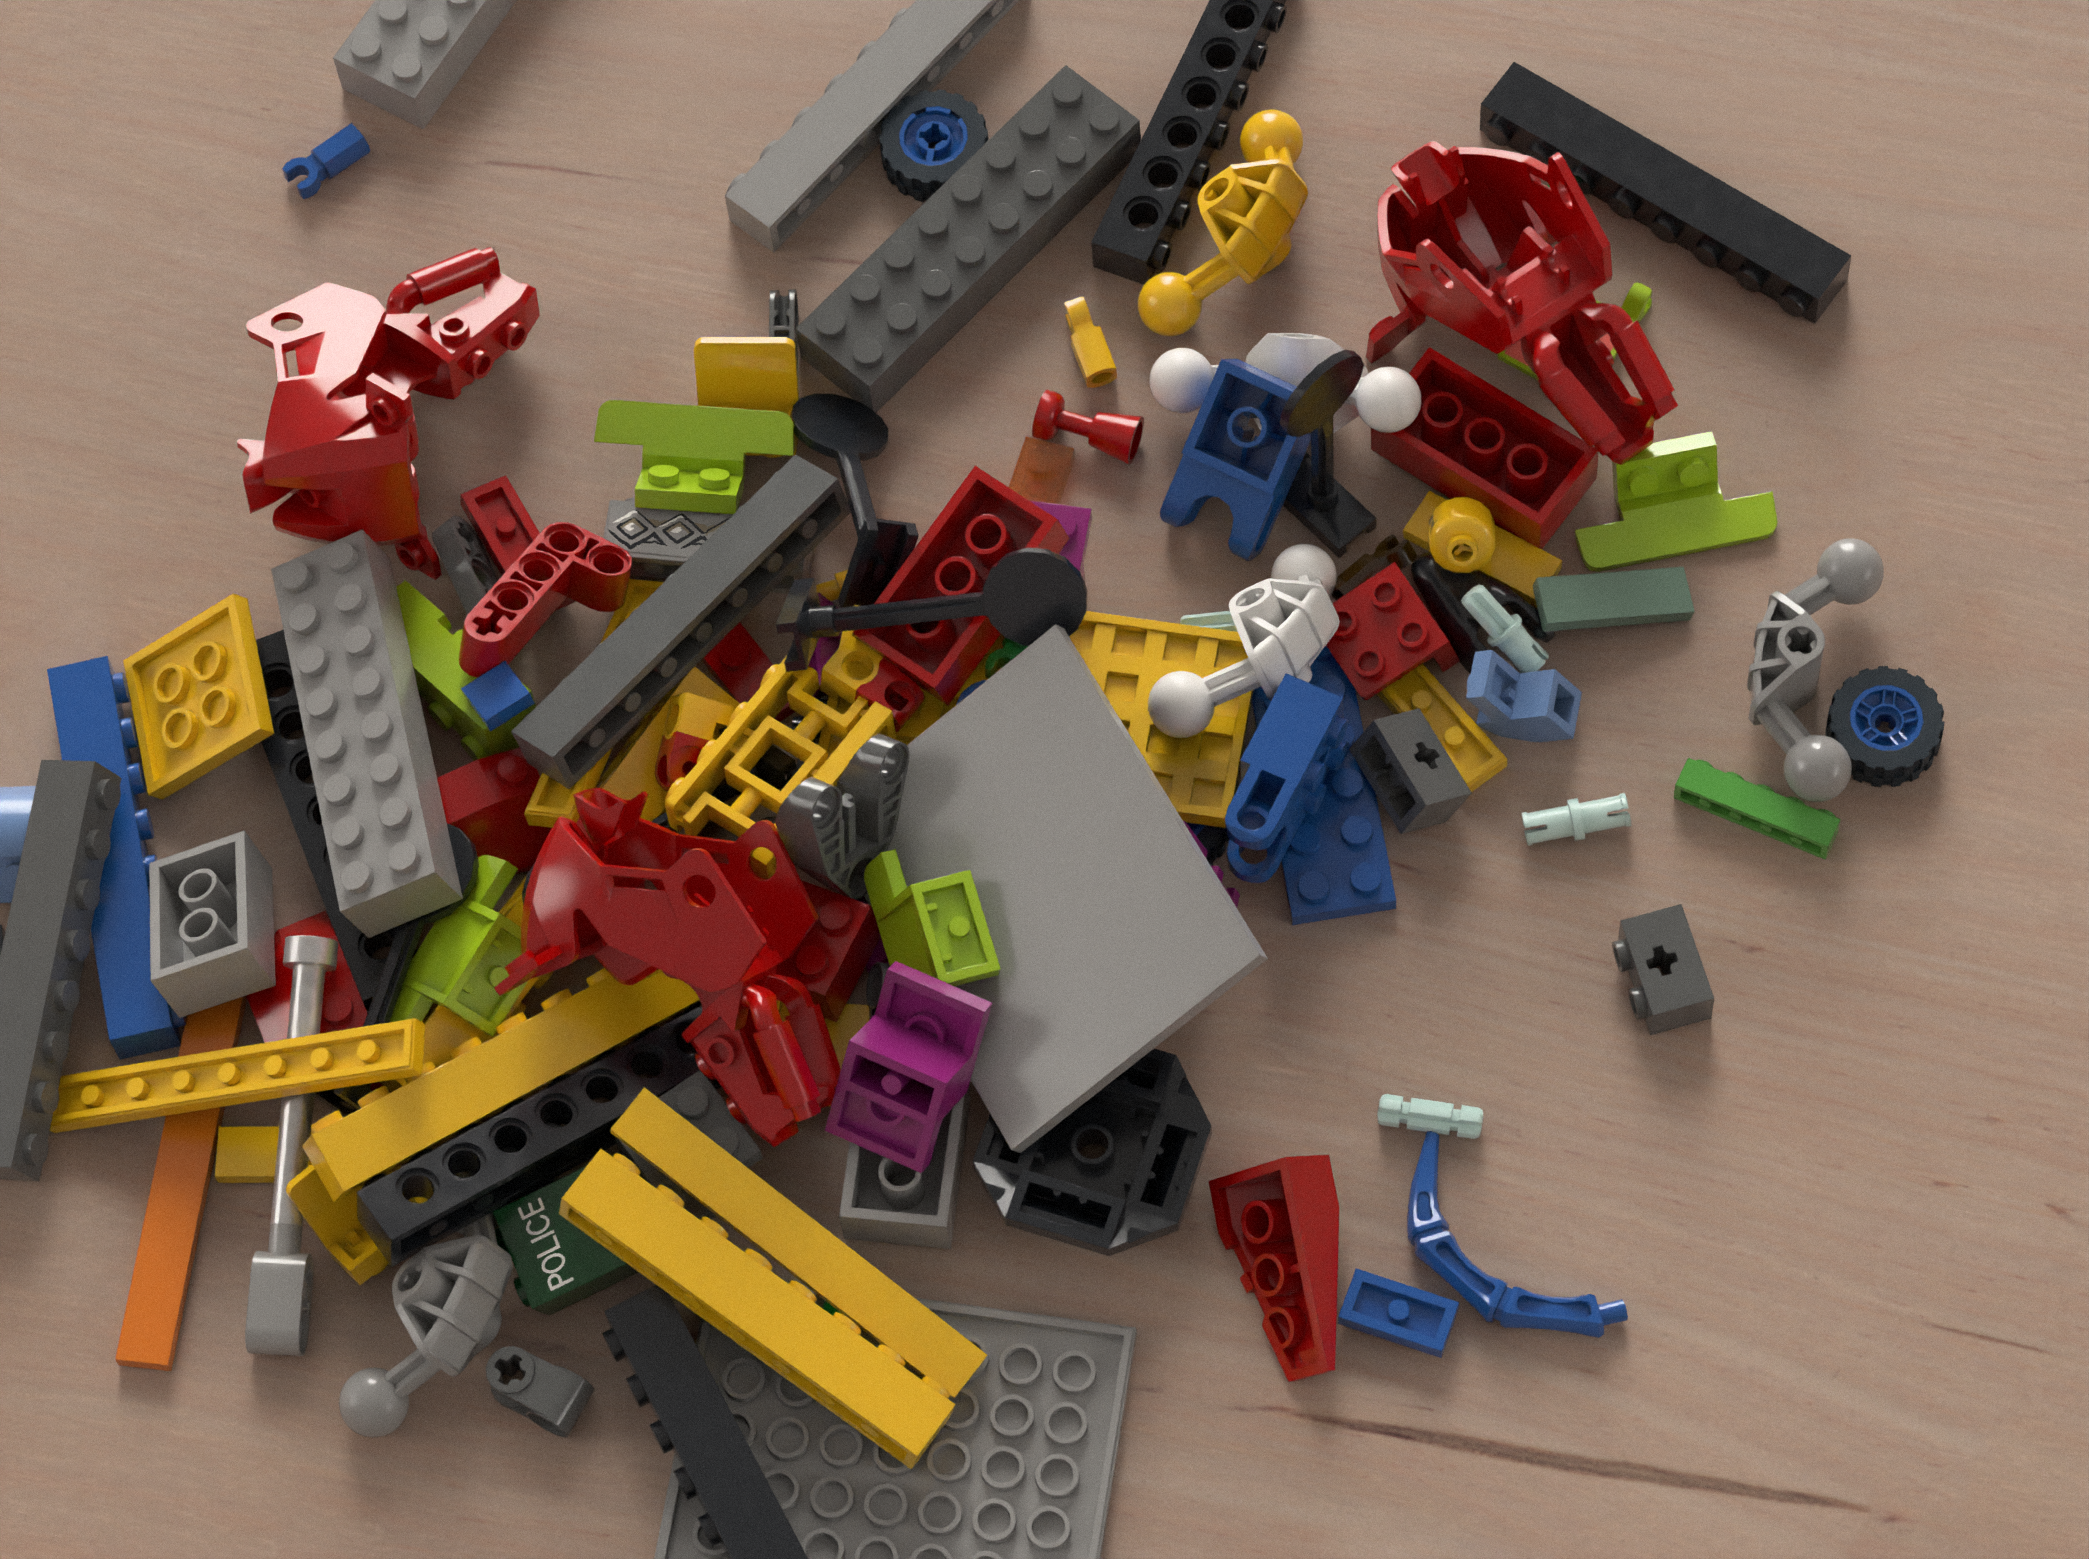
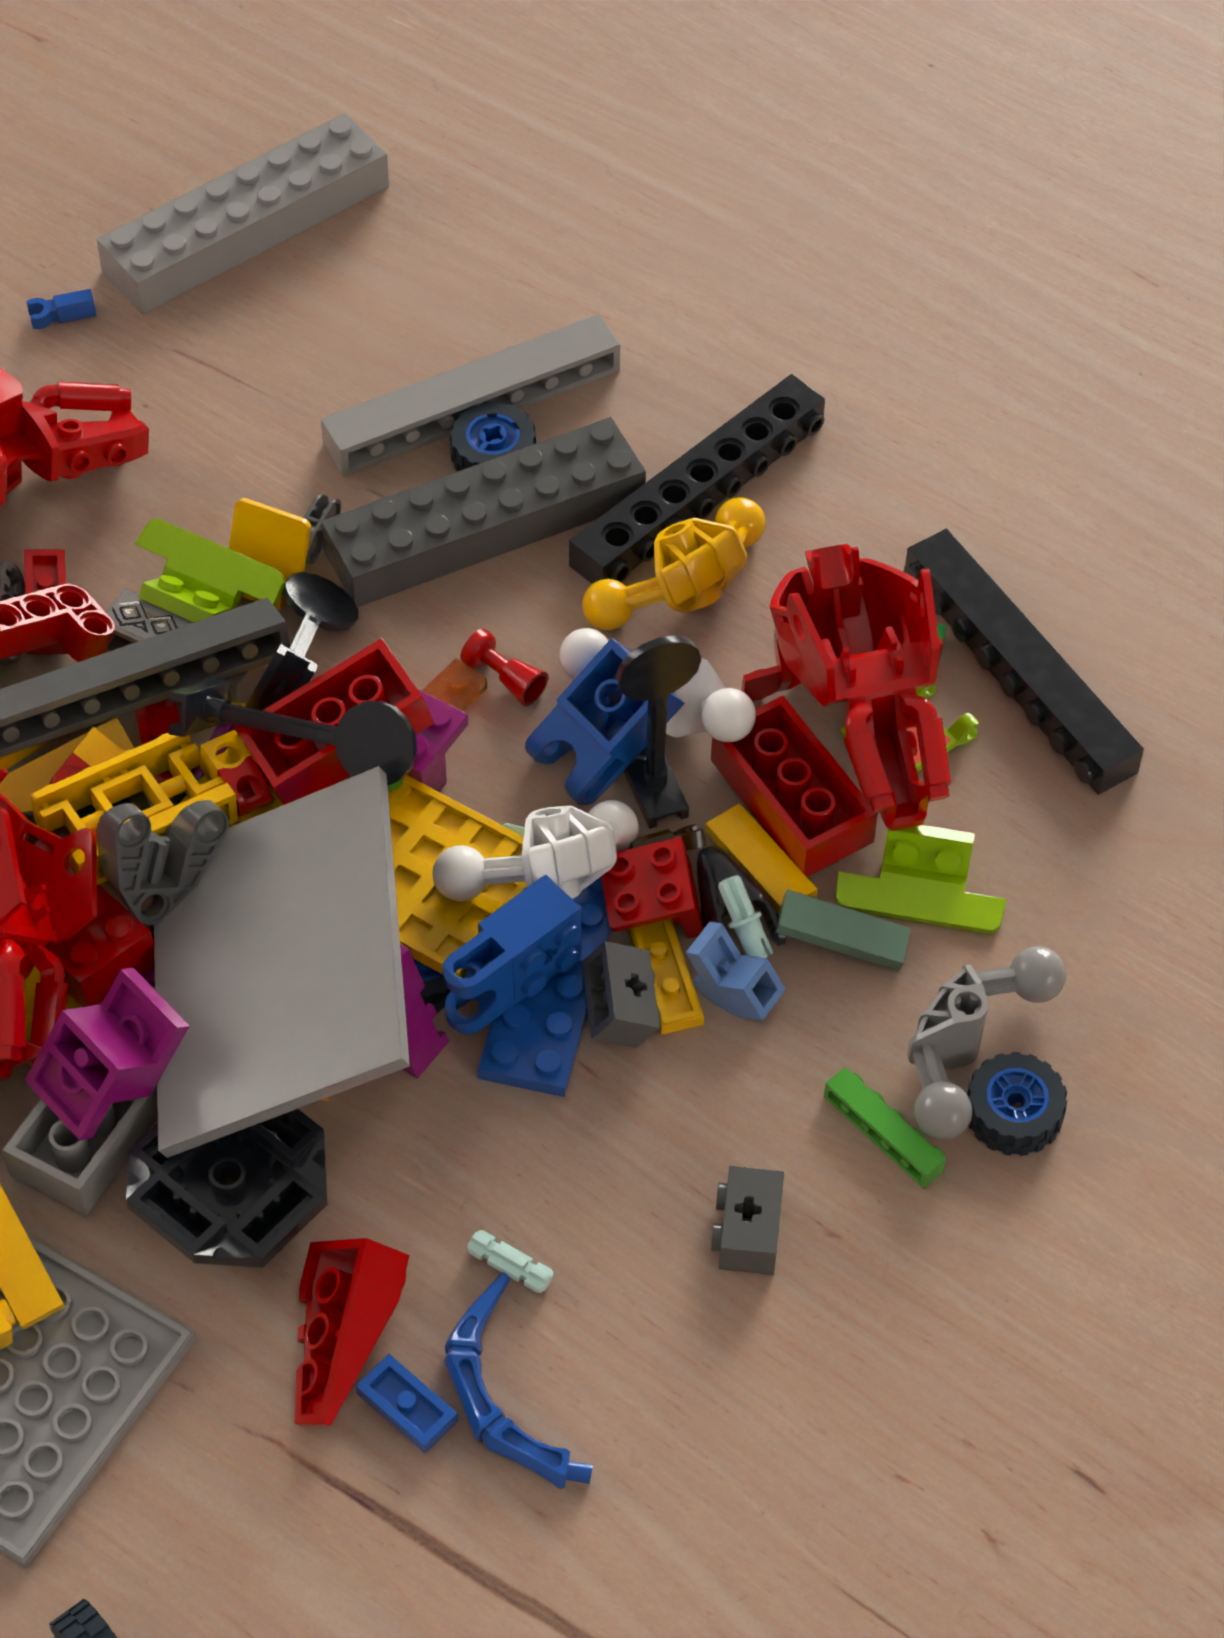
camera: 15 degrees right, 10 degrees down
(931, 923) = (185, 957): lime plate -> none
(1089, 345) = (535, 614): yellow bar -> none
(1461, 535) = (743, 837): yellow head -> none
(1576, 819) = (736, 1081): light aqua pin -> none

